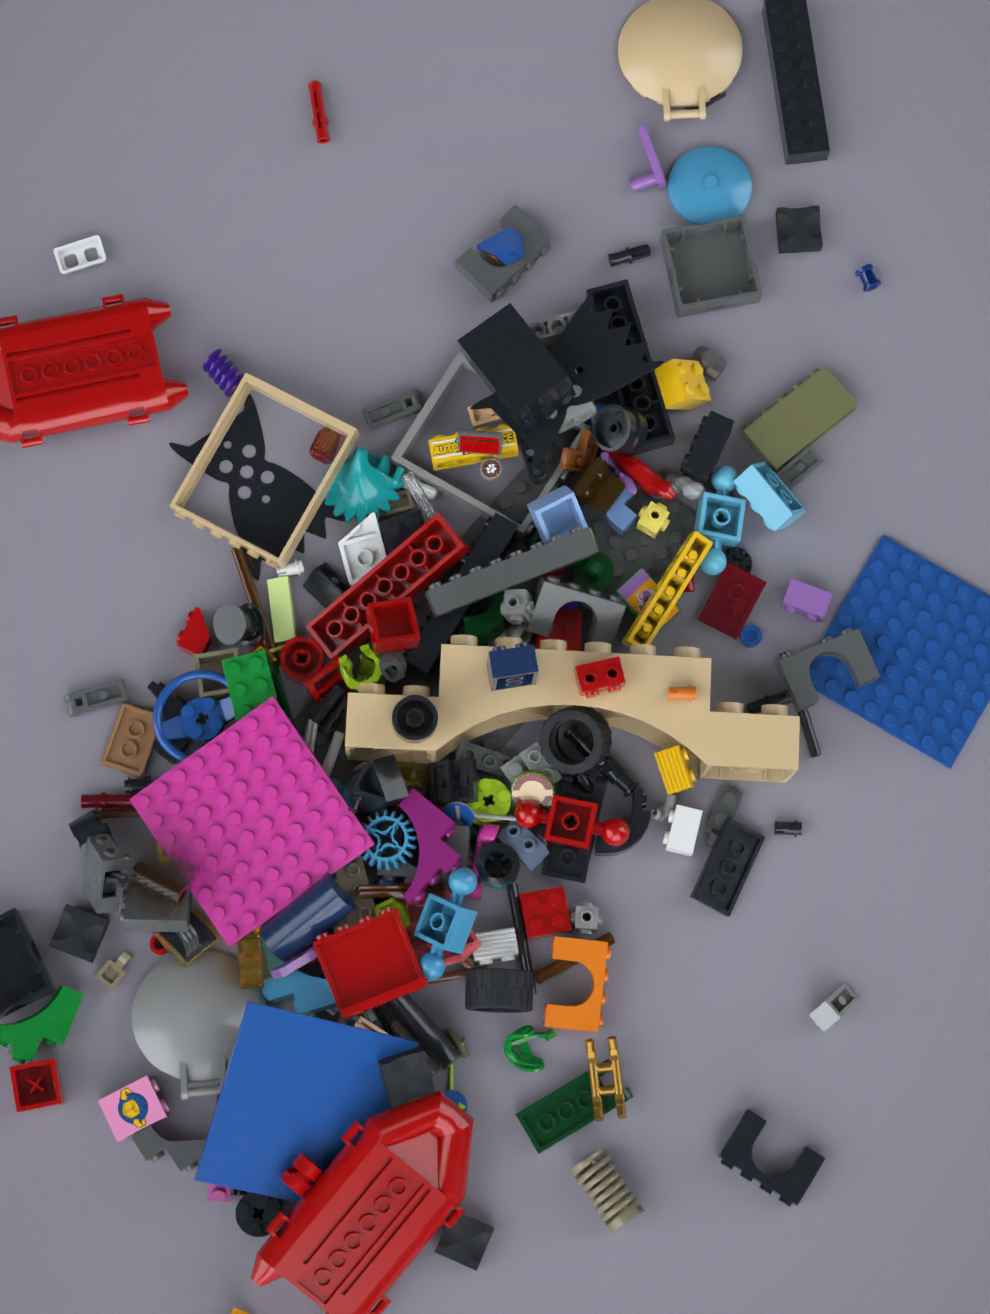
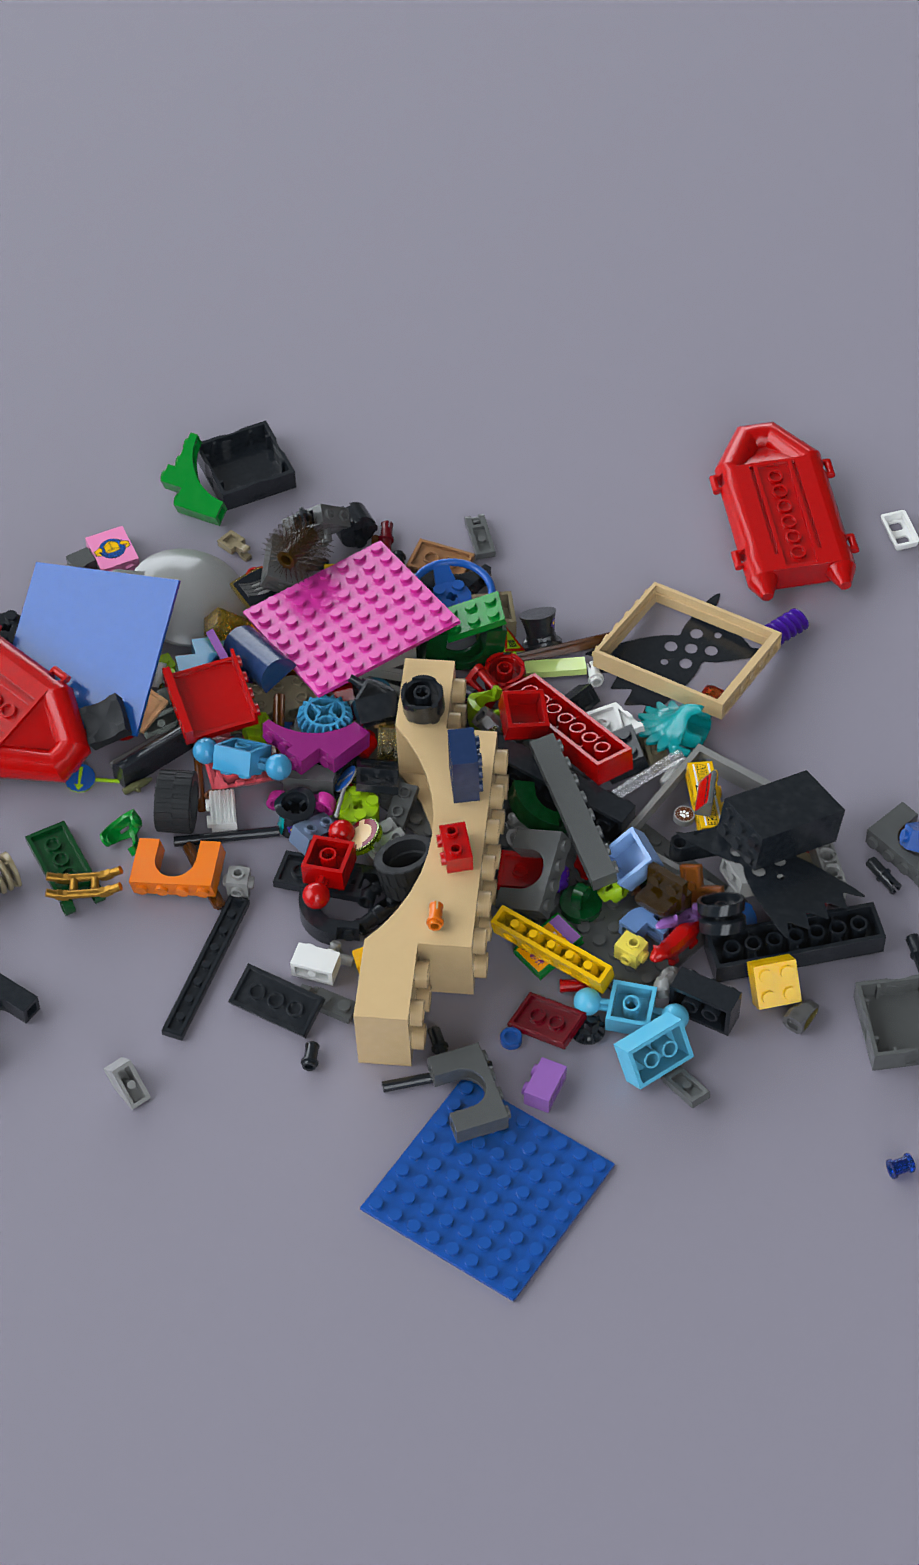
camera: 95 degrees right, 25 degrees down
(37, 1085) = (141, 489): red brick -> none
(79, 933) = (266, 517): black brick -> none
(195, 637) = (530, 598): red slope -> none
(301, 1174) = (31, 642): red wheel -> none
(392, 409) = (750, 753): dark grey plate -> none
(517, 606) = (539, 815): light grey brick -> none
(537, 284) = (883, 875): none -> black axle
(545, 913) = (248, 848): red piece -> none
(686, 944) = (205, 967): none -> black tile
(799, 418) = (741, 1091): olive brick -> none

